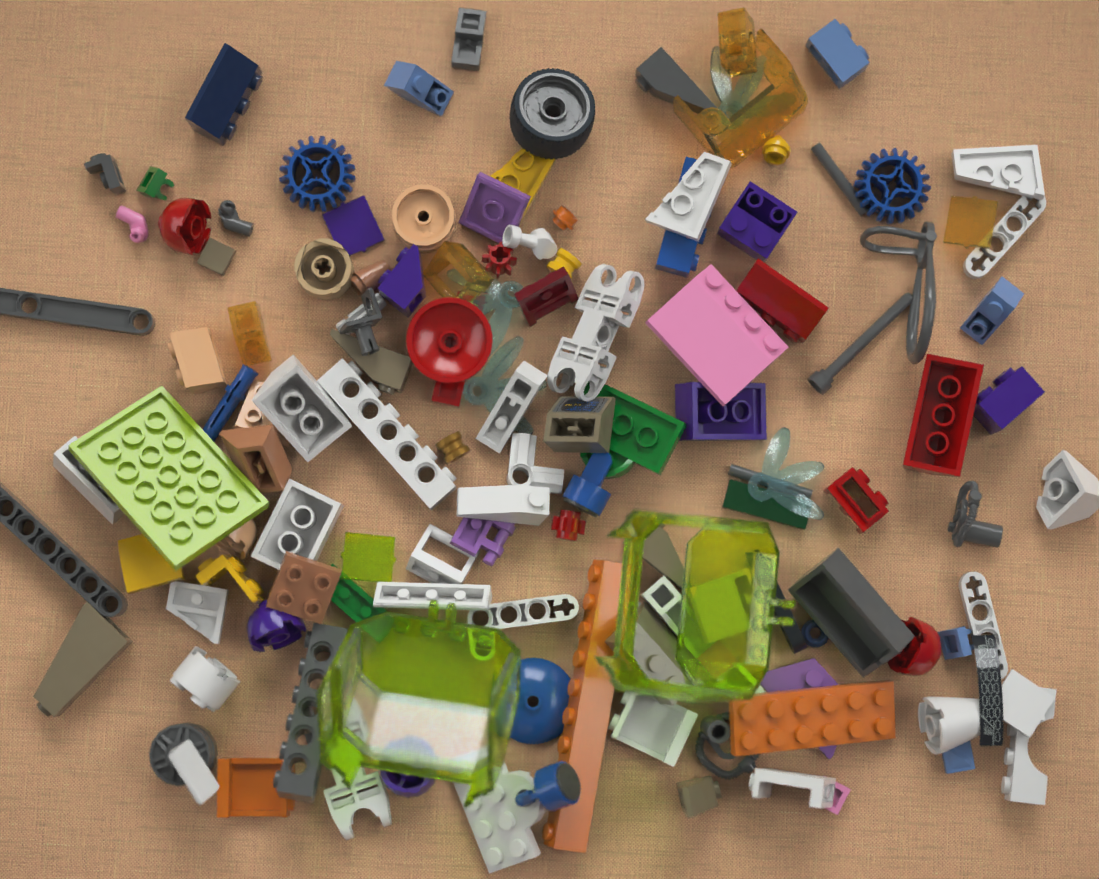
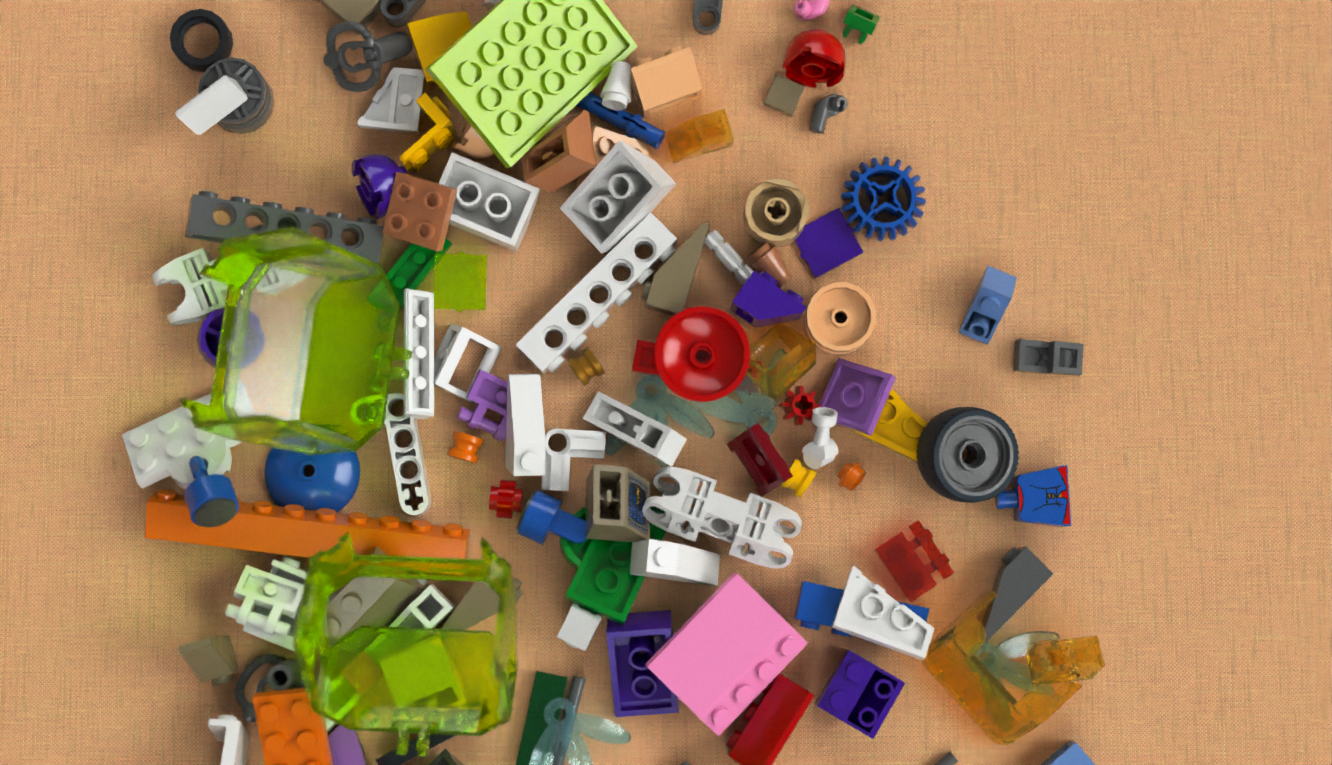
camera: 80 degrees right, 0 degrees up
(106, 788) = (190, 19): none -> black tyre
(150, 623) = (374, 51): none -> dark grey piece
(199, 403) = (617, 88): none -> white cone
(205, 679) = (317, 113): white brick -> none
(224, 95) = (963, 90): dark blue slope -> none
(248, 788) = (204, 164): orange panel -> none
(362, 326) = (711, 259): dark grey bracket -> none
(519, 559) = (465, 447): none -> orange wheel
(593, 54) = (1039, 497): none -> blue torso
(633, 377) = (674, 562): none -> white slope
(641, 740) = (269, 592): none -> plate
(647, 175) = (906, 566): none -> clear red plate
(685, 464) = (579, 627): none -> white brick
(776, 150) = (944, 711): yellow plate -> none

